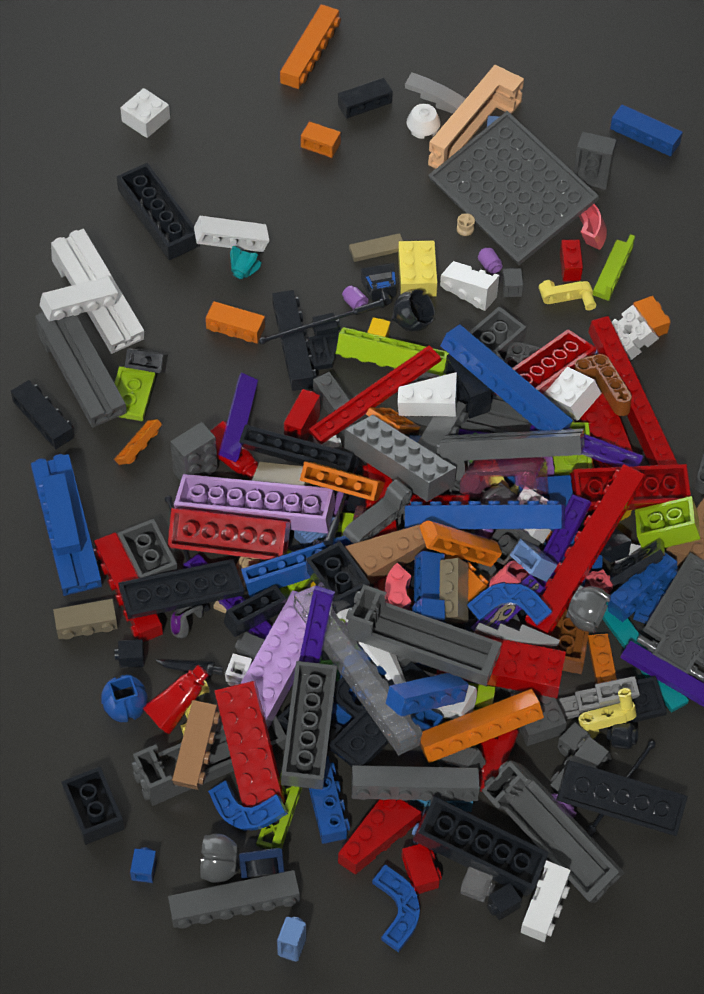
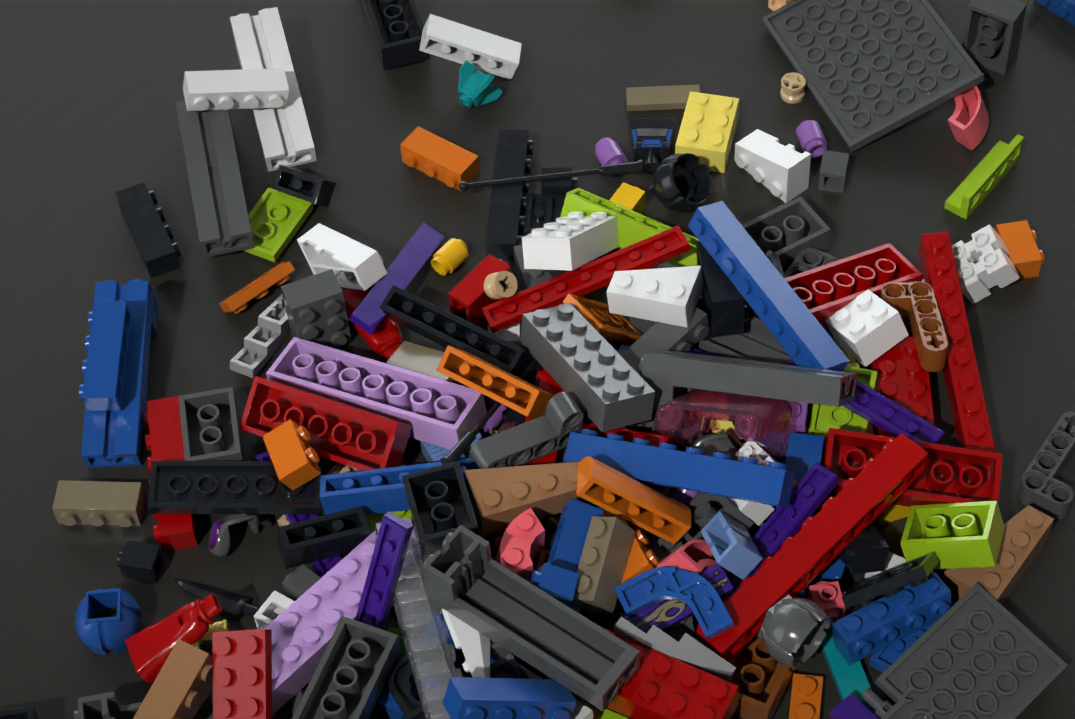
camera: 20 degrees right, 5 degrees down
(158, 476) = (263, 340): none -> light grey slope
(191, 409) = (352, 262): none -> white wedge
(216, 558) = (292, 454): none -> orange brick
(267, 394) = (450, 256): none -> yellow brick
(318, 410) = (494, 288): none -> tan wheel
(355, 369) = (570, 241): none -> white brick
(567, 292) = (907, 197): light yellow beam -> none
(571, 260) = (925, 156): red brick -> none

